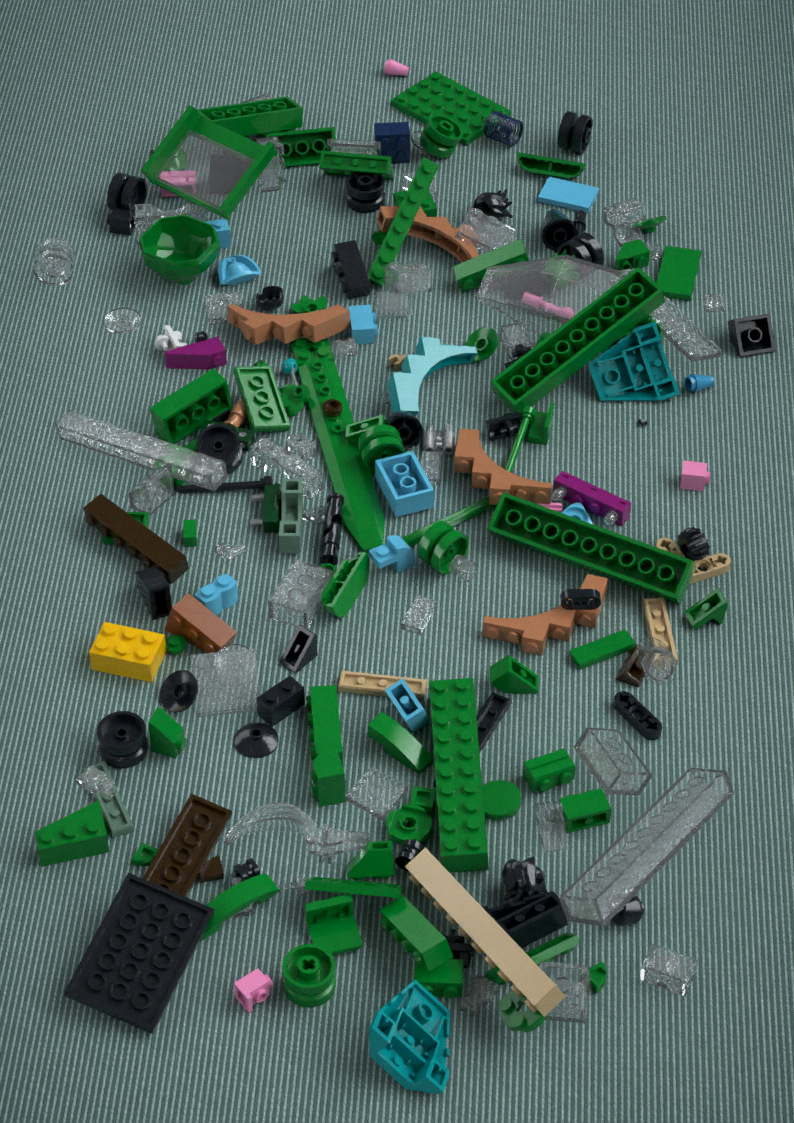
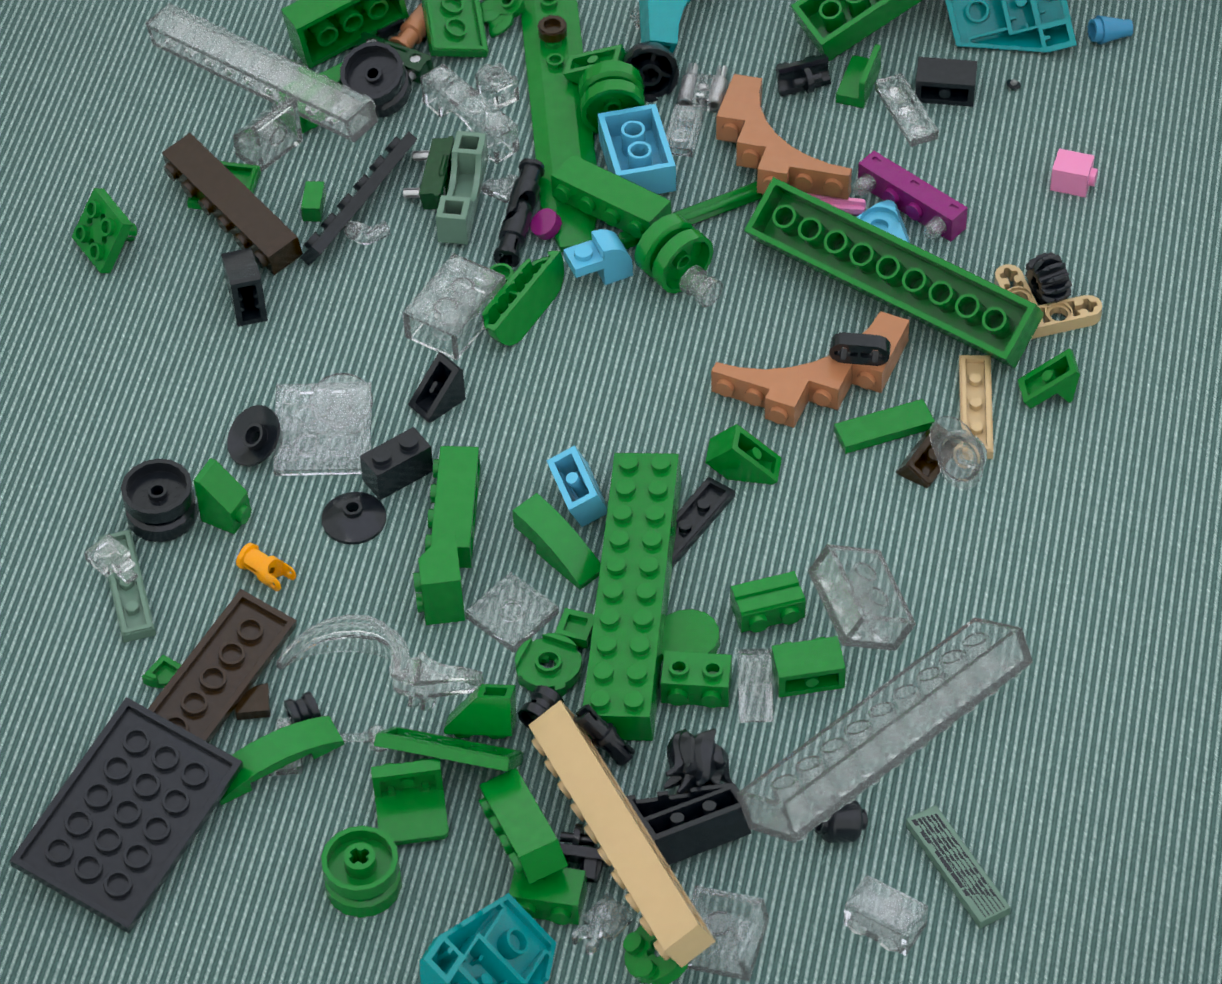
camera: 10 degrees right, 5 degrees up
(54, 563) = (101, 236): none -> green plate
(73, 836) = (65, 636): green wedge -> none
(127, 652) = (191, 371): yellow brick -> none
(175, 644) = (262, 366): green plate -> none
(199, 625) = (298, 341): dark orange wedge -> none
(204, 778) = (263, 566): none -> light orange piece
(217, 532) = (350, 204): none -> black plate
(219, 594) = (333, 299): medium azure brick -> none
(253, 989) = (279, 882): bright pink brick -> none
(267, 480) = (436, 131): black piece -> none
(351, 535) = (546, 224): none -> magenta tile
(376, 684) = (537, 449): tan tile -> none
(392, 514) = (607, 196): none -> green brick
(418, 615) = (623, 351): clear plate -> none
(457, 868) = (604, 735): none -> black pin
(511, 825) = (696, 679): none -> green brick
(527, 416) = (839, 62): green piece -> none
(544, 953) = (710, 871): green plate -> none
(576, 443) = (906, 109): none -> clear plate
(598, 977) = (781, 914): green tile -> none
(599, 423) = (946, 81): none -> black brick
(640, 724) = (916, 518): black beam -> none
(709, 933) = (958, 866): none -> sand green tile

